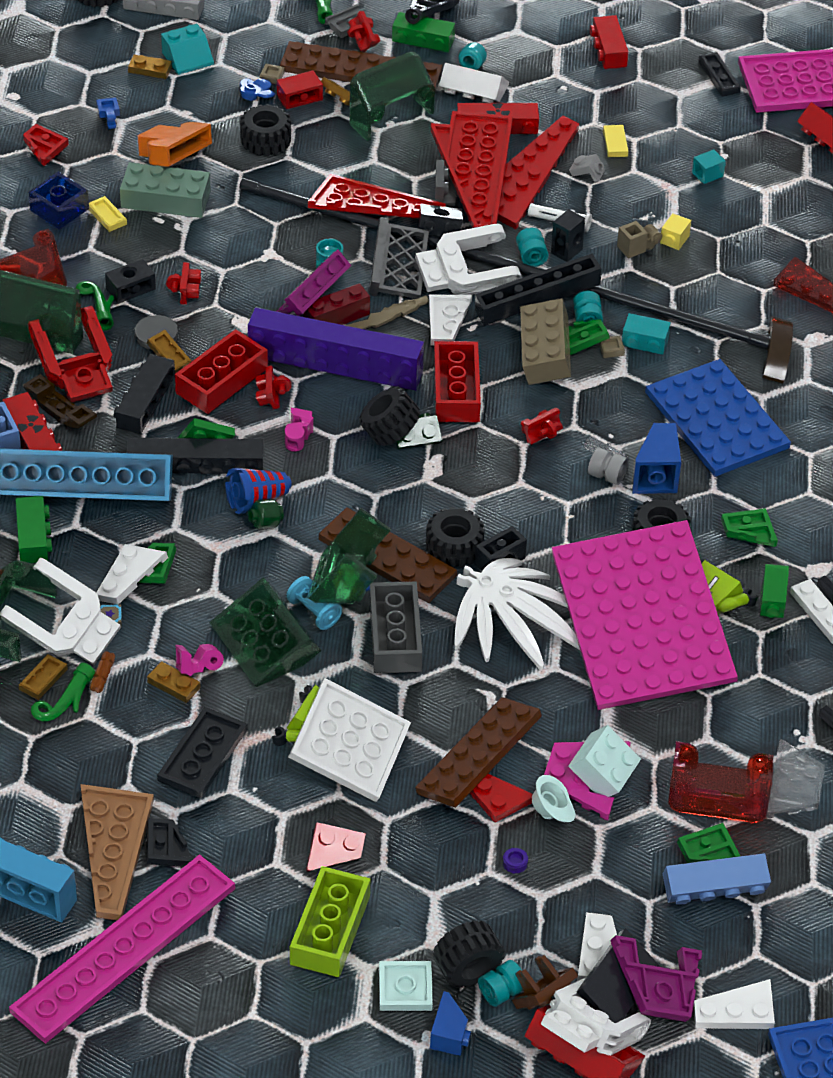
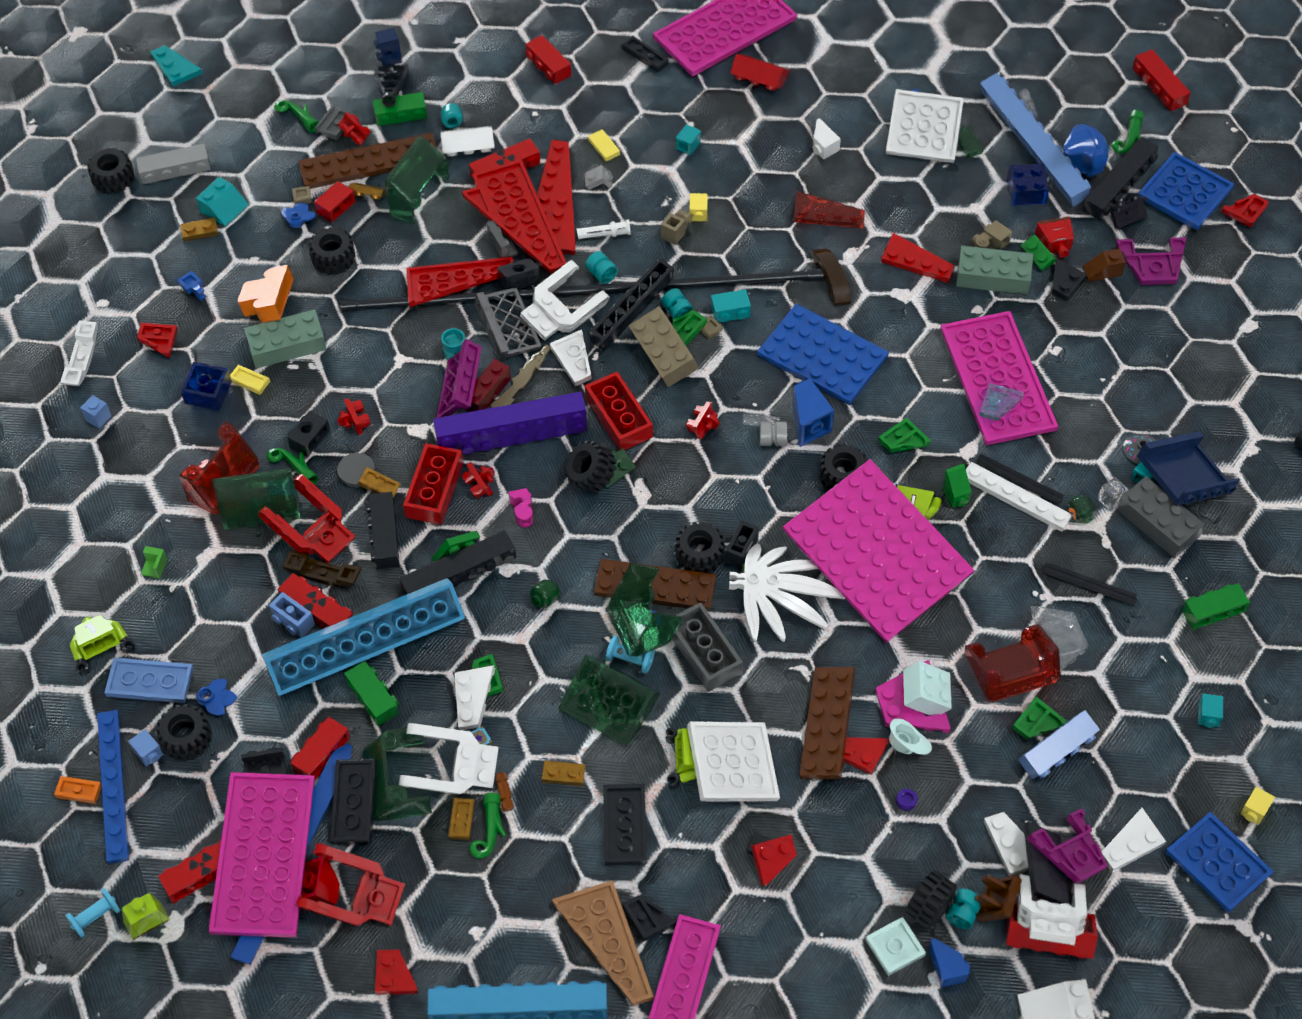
camera: 25 degrees left, 10 degrees up
(205, 656) = (576, 742): dark pink leg -> none
(253, 485) = (521, 577): blue cone -> none
(330, 921) = (812, 922): lime brick -> none
(567, 235) = (624, 246): black brick -> none

